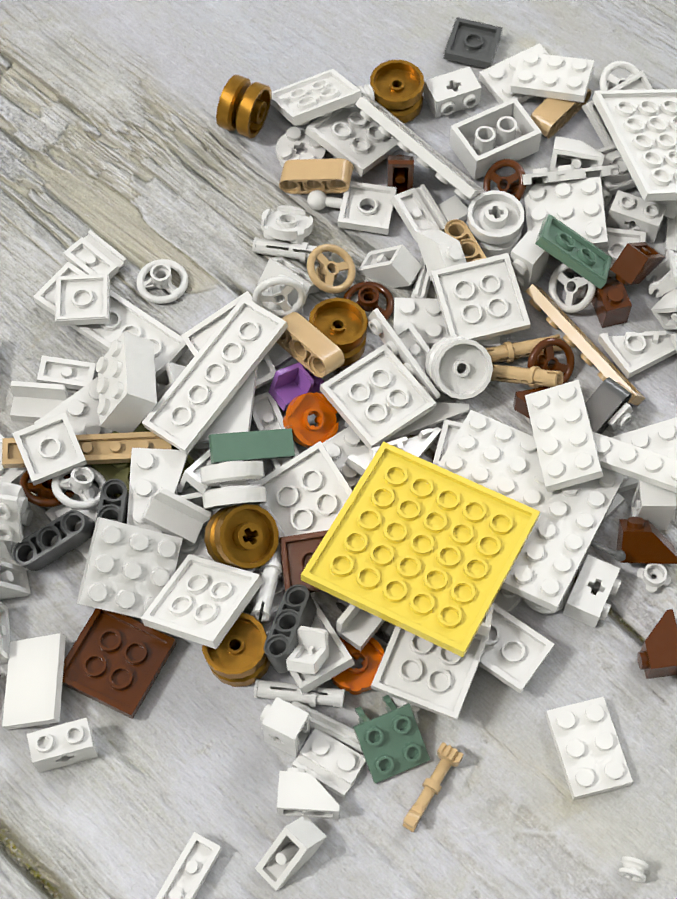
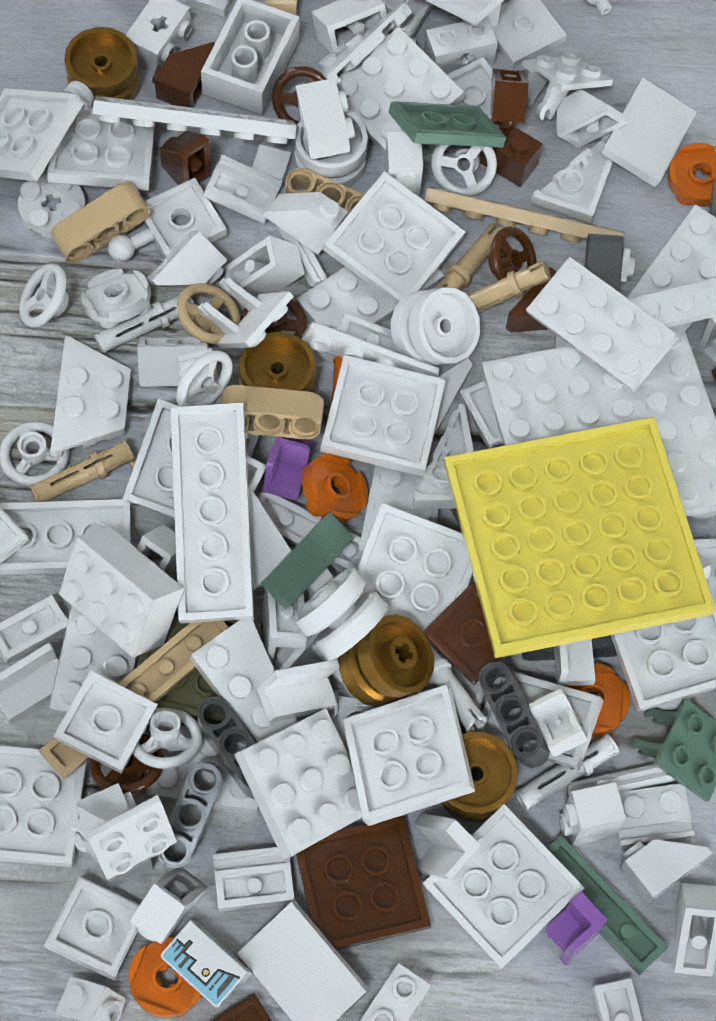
camera: 45 degrees left, 5 degrees up
(57, 607) = (252, 879): none -> white plate
(185, 676) = (450, 846): none -> white panel
(187, 311) = (95, 466): none -> tan pin
(194, 727) = (506, 887): none -> white plate
(210, 787) = (576, 926): none -> medium lavender panel
(219, 272) = (89, 398): none -> white wing
(245, 789) = (624, 928): none -> sand green plate
(246, 197) = (49, 296): none -> white piece
(348, 233) = (189, 263): none -> white slope
(358, 286) = (252, 327): none -> white plate
(437, 123) = (180, 76): none -> reddish brown slope
(496, 196) = (323, 118): none -> white brick

